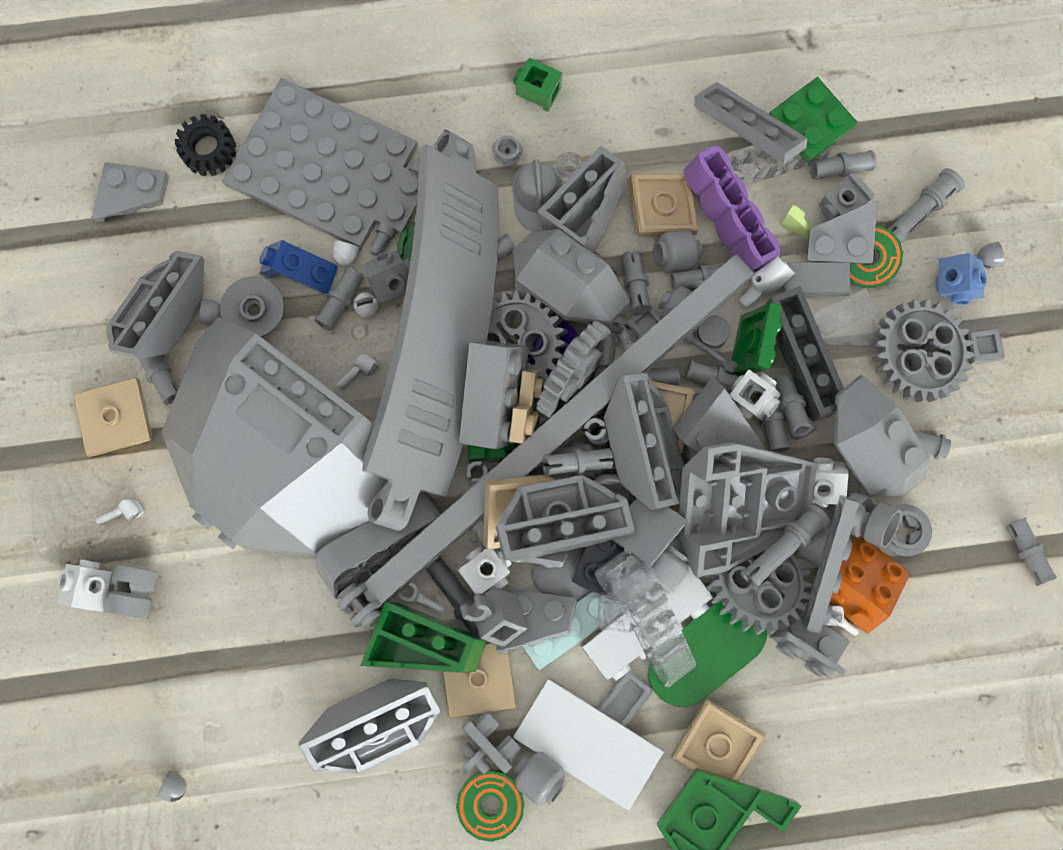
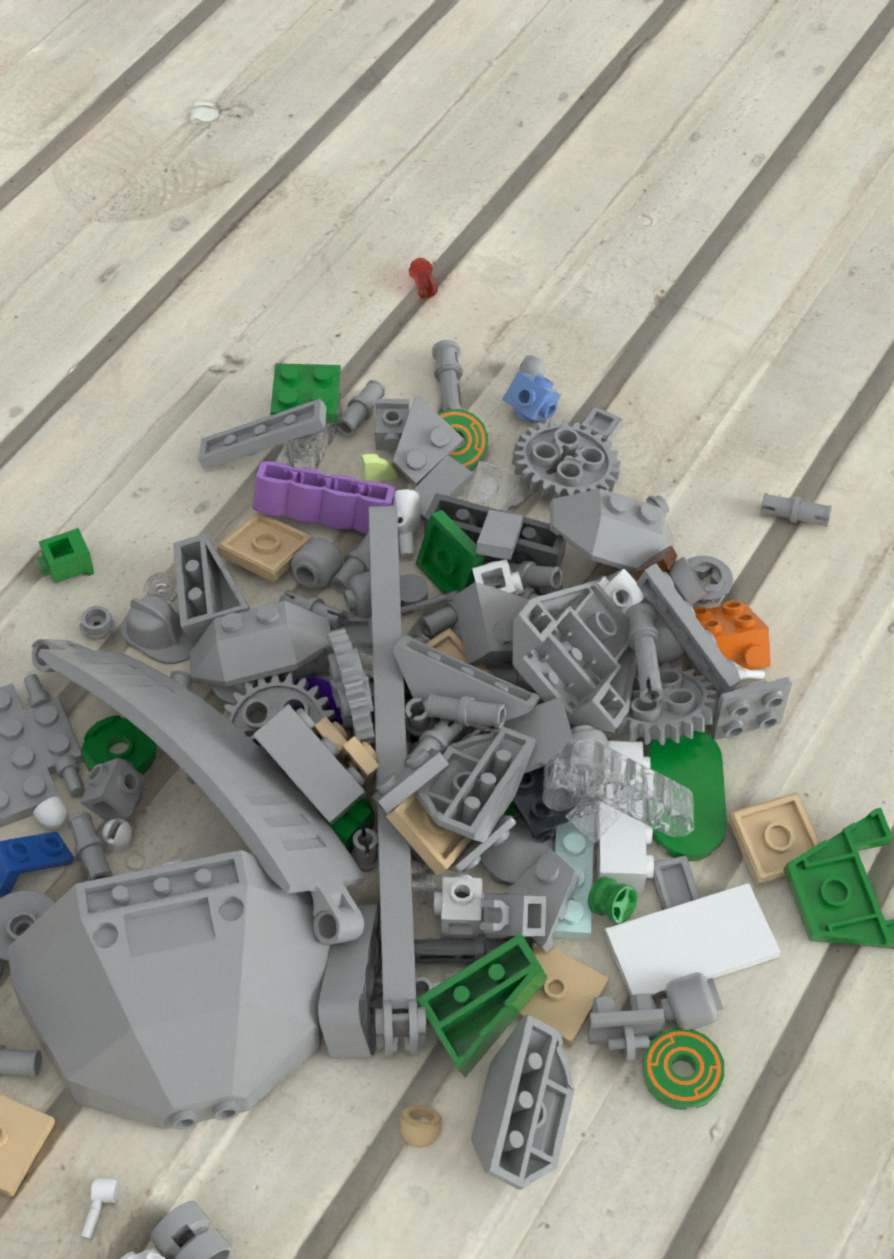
camera: 50 degrees left, 25 degrees down
(310, 665) = (417, 1132): none -> tan piece
(524, 475) = (421, 769): none -> light grey plate
(571, 668) = (612, 899): none -> green wheel
(617, 465) = (466, 710): none -> light grey pin
(795, 365) = (499, 534): none -> light grey tile
(874, 495) = (664, 559): none -> reddish brown tile
(1014, 98) = (421, 272): none -> clear red pin

